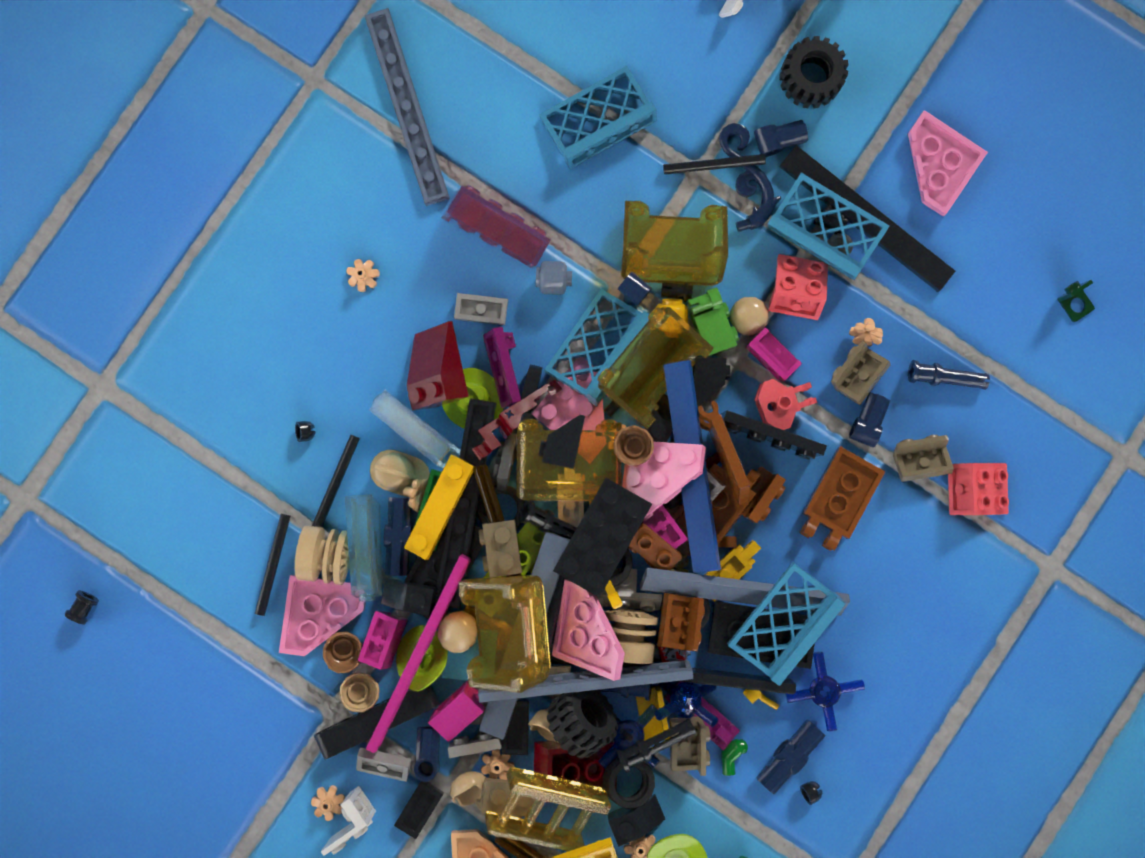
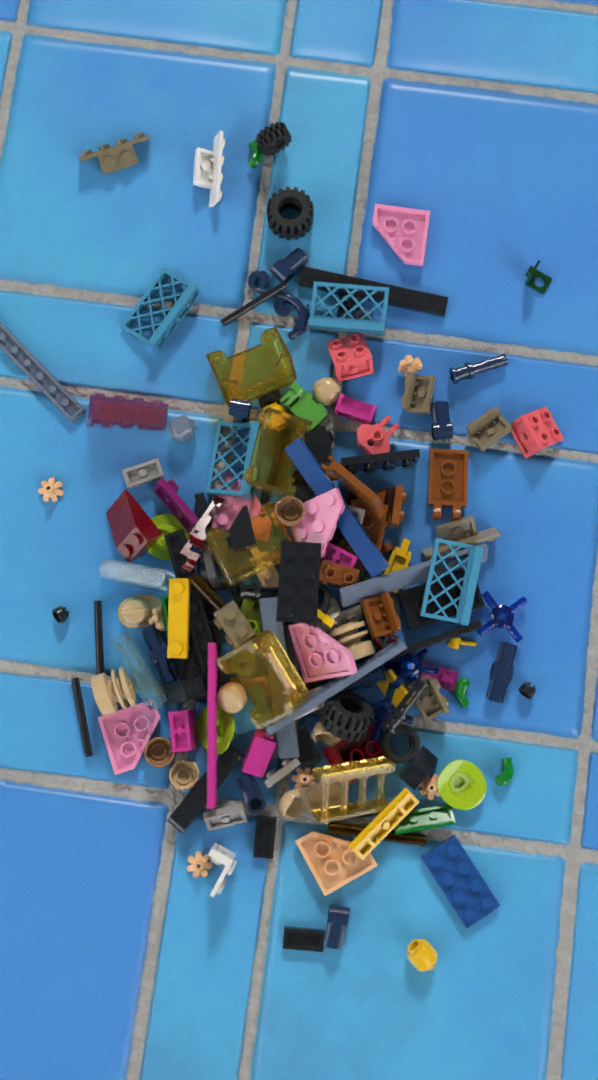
camera: 25 degrees left, 5 degrees down
(825, 566) = (461, 531): none -> dark tan bracket

